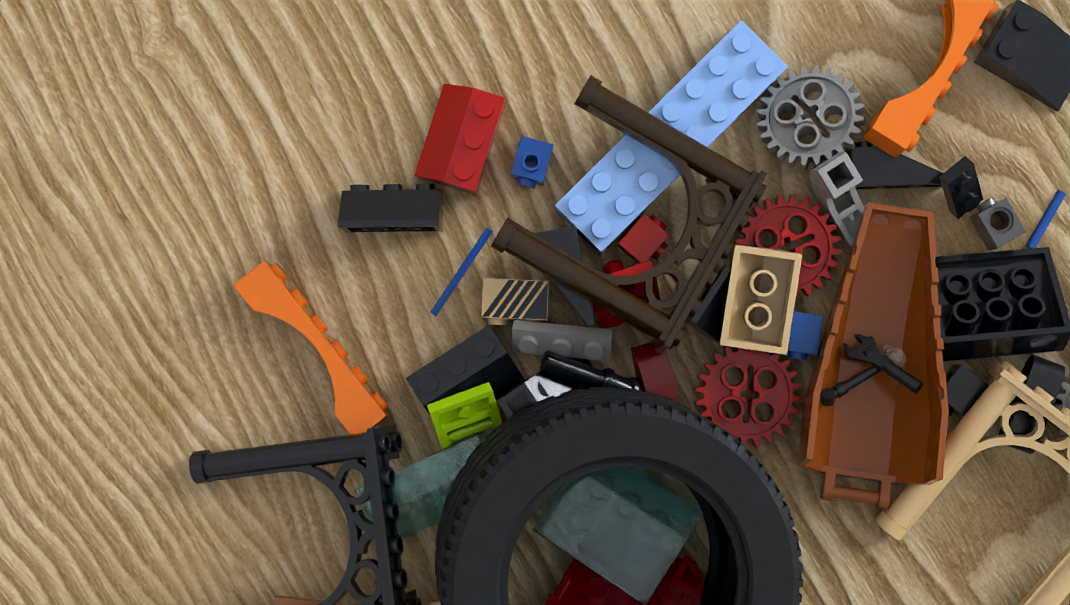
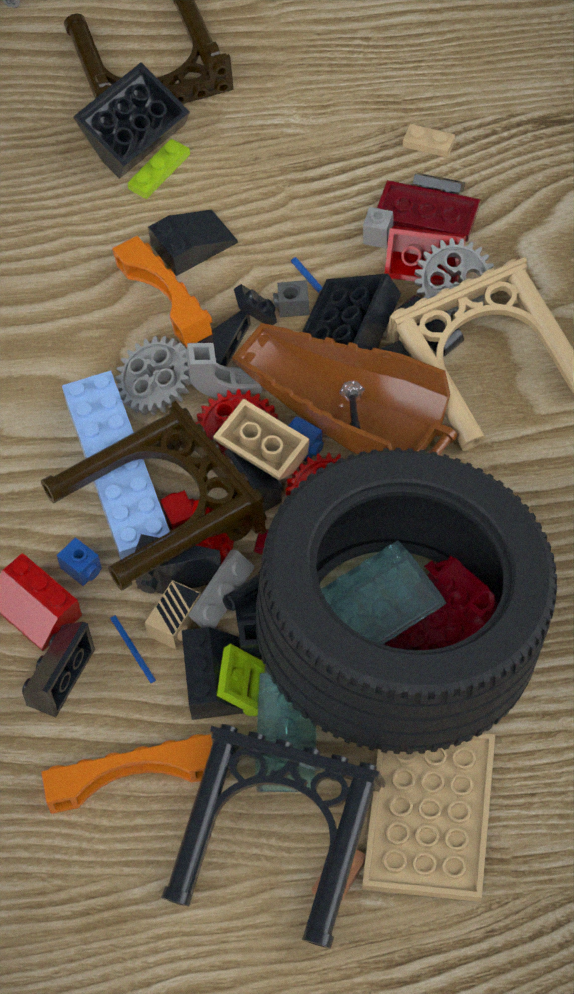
camera: 60 degrees left, 30 degrees down
(868, 353) = (339, 403): black piece -> none

